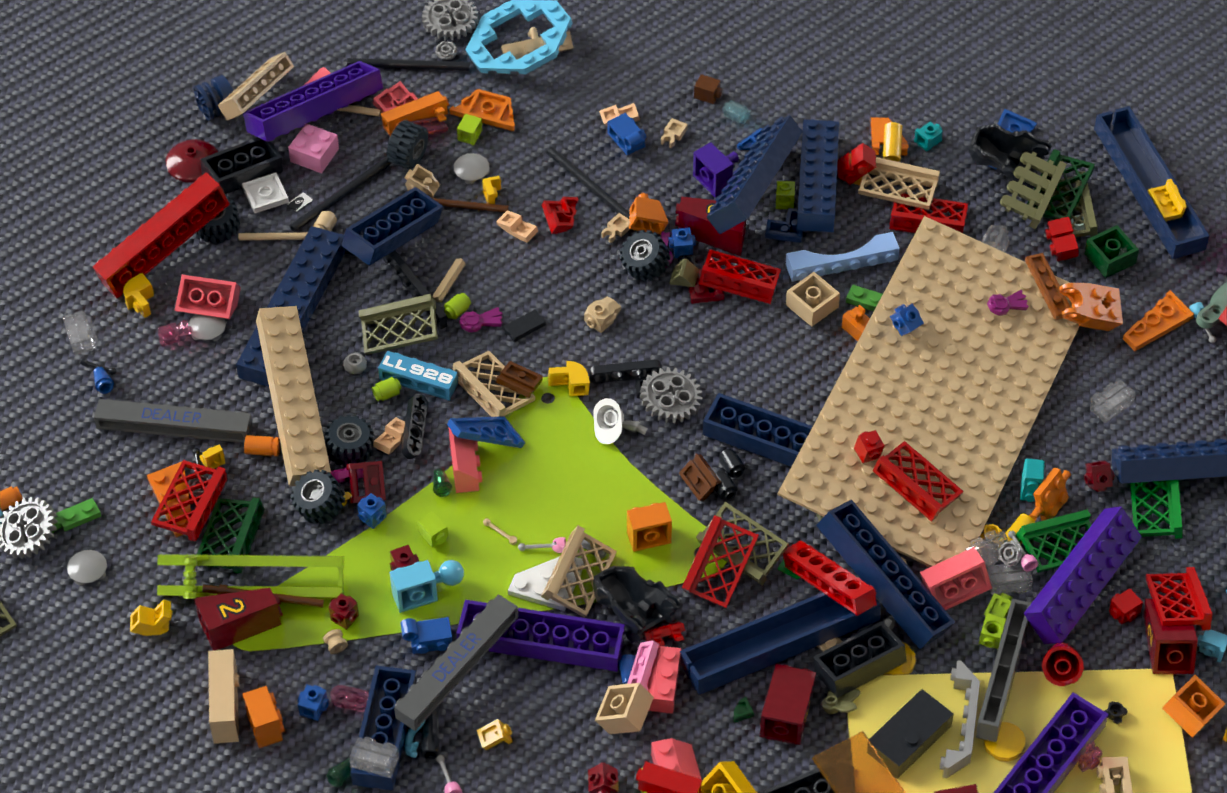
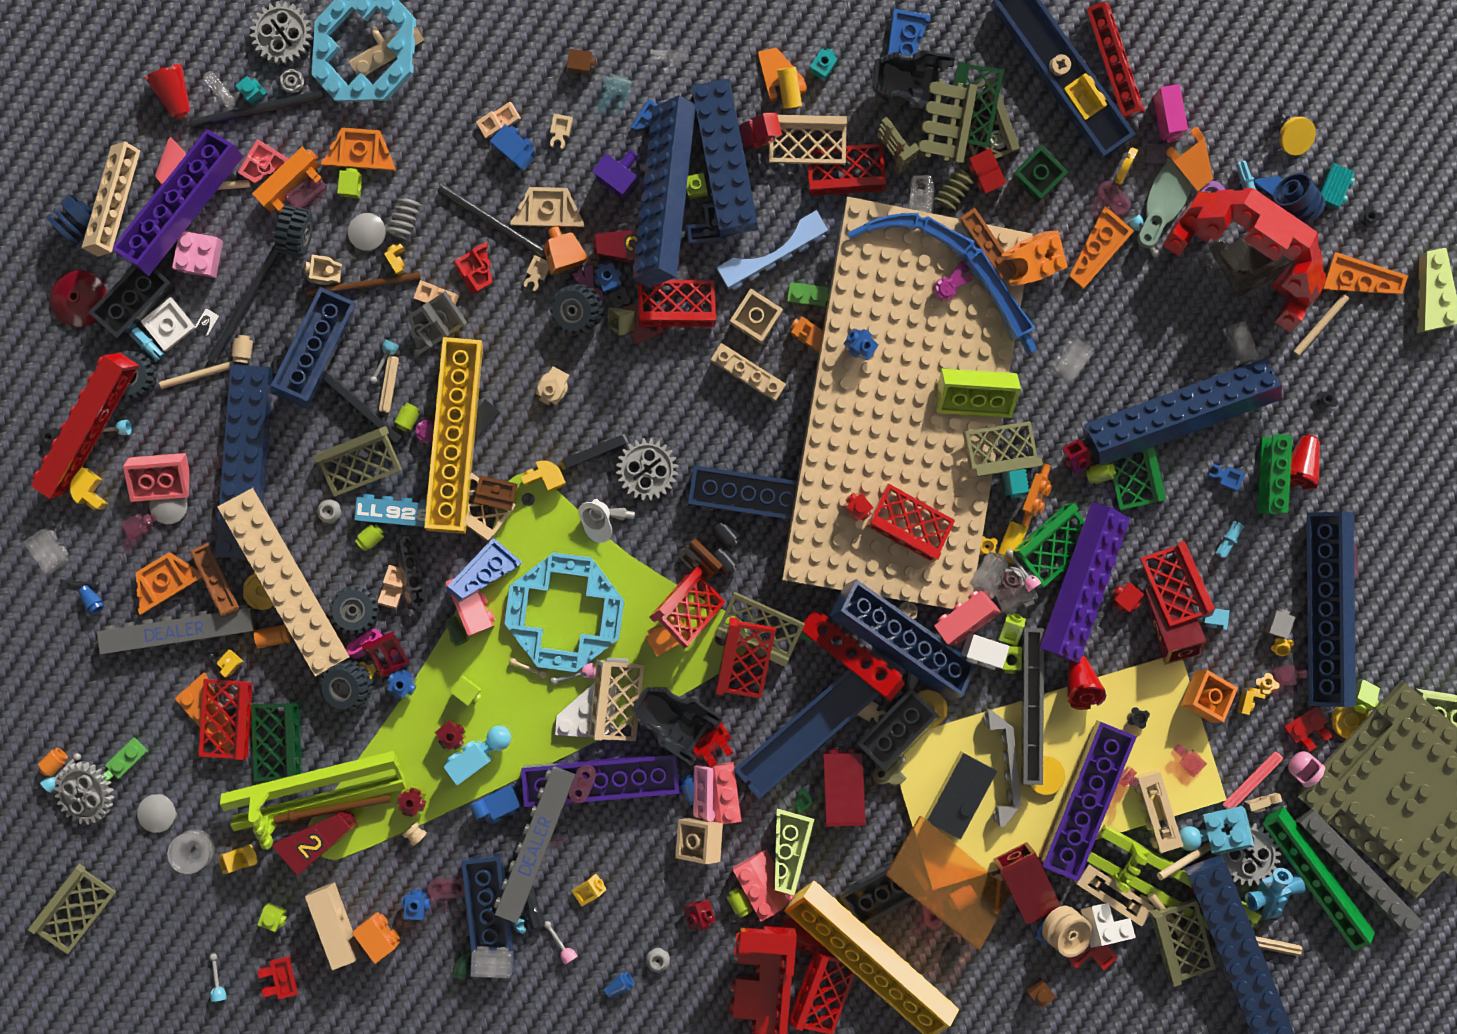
camera: 10 degrees left, 35 degrees up
(80, 737) = (217, 992): none -> hinge
(109, 598) = (179, 851): none -> clear wheel
(152, 737) = (283, 977): none -> red plate
(164, 679) = (272, 917): none -> lime brick
(177, 380) = (163, 580): none -> orange wing
(190, 258) = (122, 427): none -> medium azure hinge
(226, 386) = (214, 580): none -> dark orange tile
(240, 202) = (146, 343): none -> medium azure axle
(262, 412) = (255, 594): none -> yellow tile
(338, 29) = (171, 90): none -> red cone
(380, 43) = (219, 89): none -> clear axle
(408, 47) = (251, 90): none -> teal brick
(459, 252) = (388, 348): none -> hinge
(496, 322) = (454, 435): none -> yellow brick
(509, 161) = (403, 218): none -> light grey piece
(509, 241) = (434, 321): none -> dark grey slope
(523, 623) = (582, 783): none -> clear pink plate
(537, 458) = (531, 637): none -> medium azure plate
(640, 180) = (547, 209): none -> tan wing
(675, 488) = (675, 598): none -> red fence
(719, 737) = (792, 841): none -> yellowish green wedge
(789, 102) = (669, 55): none -> clear axle
(792, 341) = (748, 372): none -> tan brick
(967, 606) = (987, 652): none -> white brick
(982, 194) = (897, 147): none -> olive fence
(1010, 394) = (977, 393): none -> lime slope
(1014, 459) = (1007, 464): none -> olive fence
(1029, 245) = (953, 189): none -> olive piece
(1061, 345) = (1013, 316): none -> blue animal
(1120, 495) = (1099, 474): none -> lime brick
(1148, 178) = (1056, 67): none -> tan wheel
(1162, 765) = (1190, 760): none -> clear pink plate
(1181, 288) = (1115, 196): none -> clear pink plate
(1196, 261) = (1126, 165): none -> yellow tile
(1202, 184) = (1115, 60): none -> red brick

